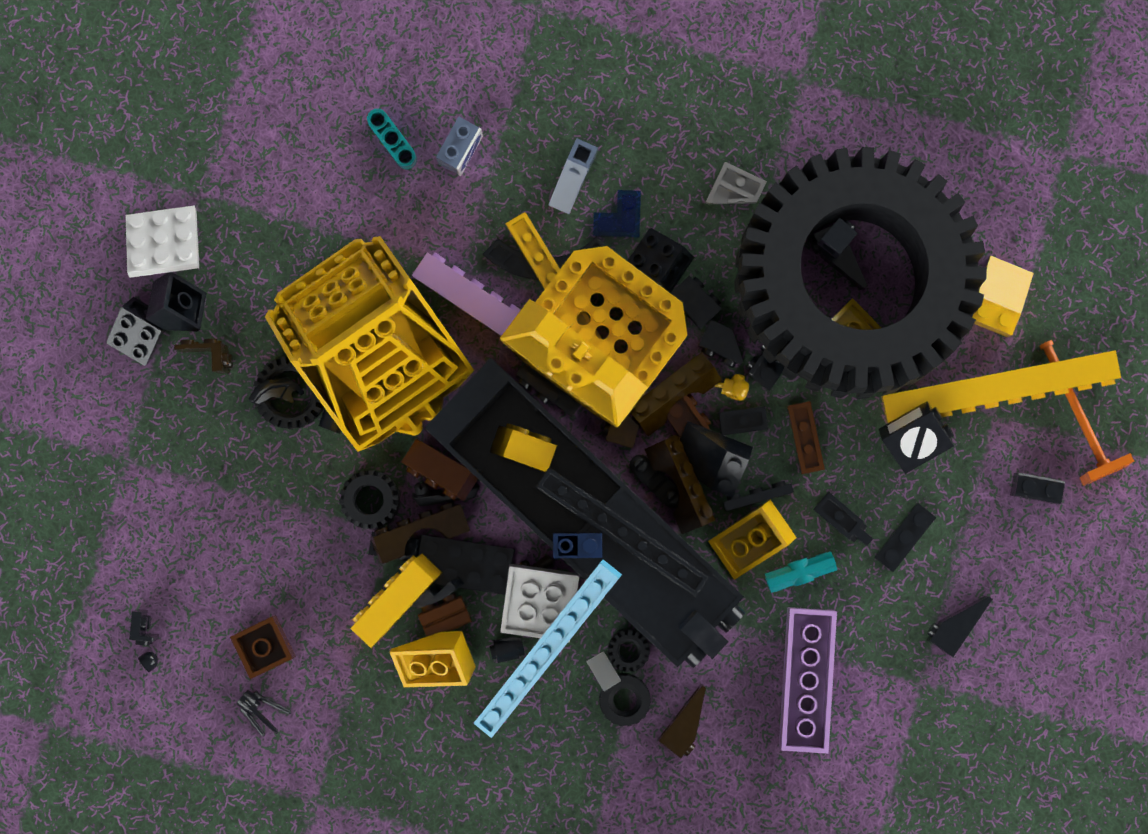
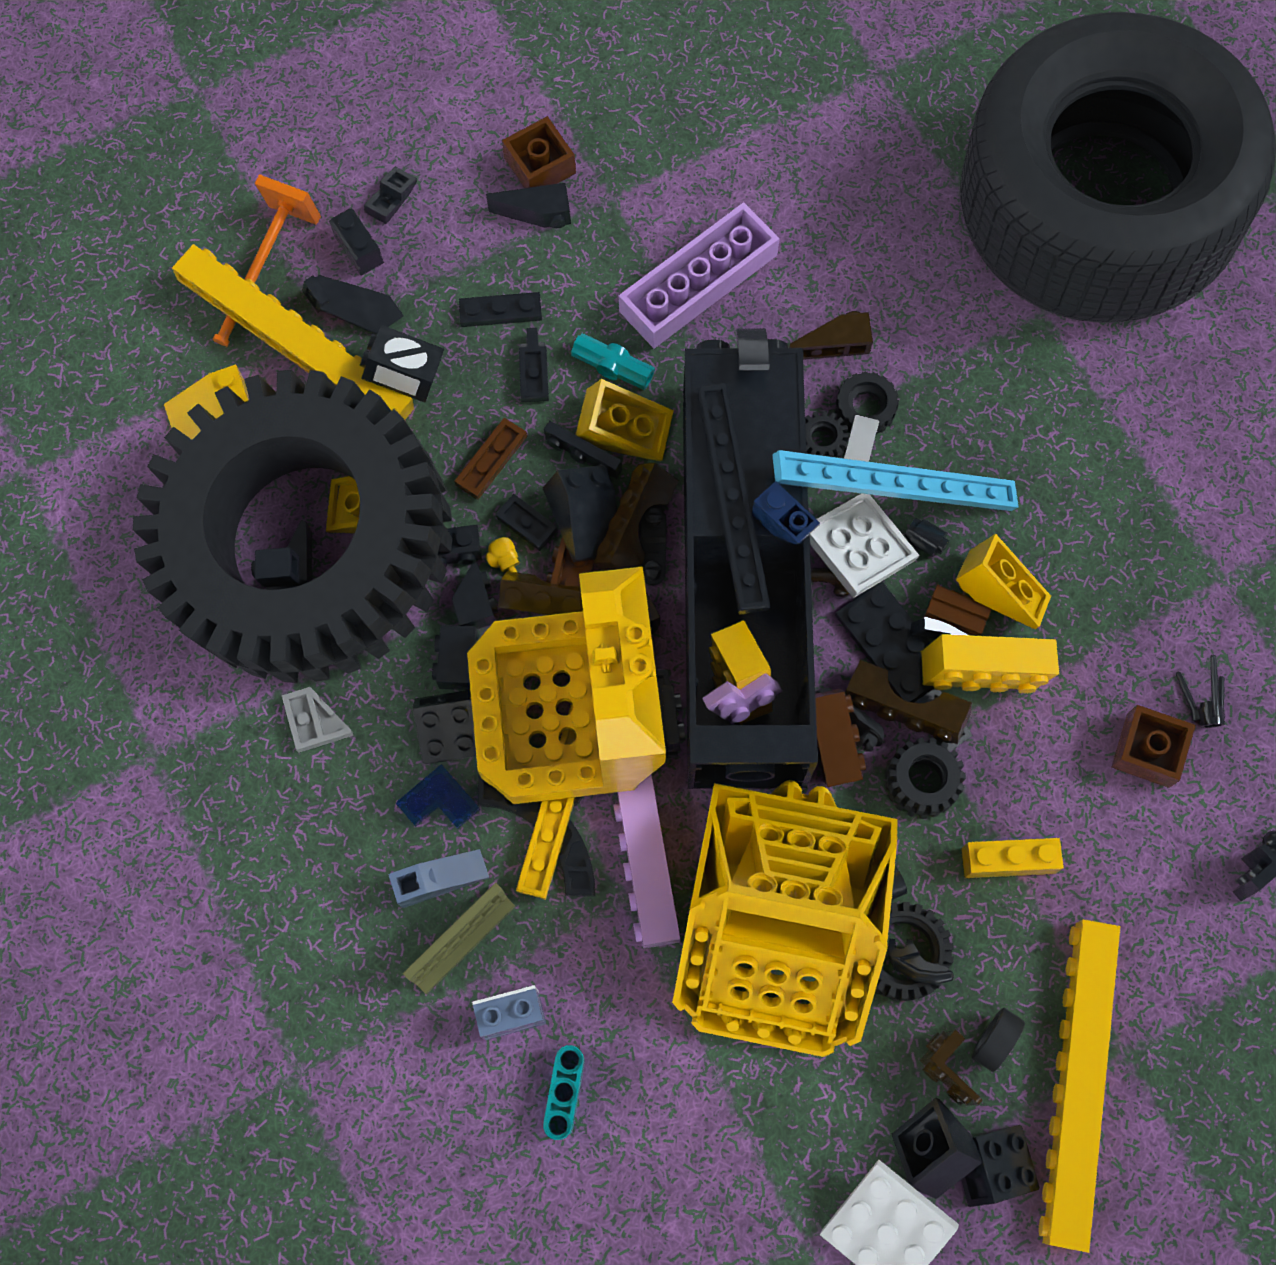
camera: 130 degrees left, 15 degrees down
(134, 418) = (1080, 1087): none -> yellow brick
(196, 394) = (998, 1040): none -> black tyre
(280, 503) = (1012, 858): none -> yellow brick
(503, 424) = (737, 704): none -> lavender plate
(528, 157) = (460, 939): none -> olive fence
(990, 660) = (539, 155): none -> reddish brown brick
(992, 446) = (351, 303): none -> black piece
(1055, 542) = (392, 193): none -> black slope

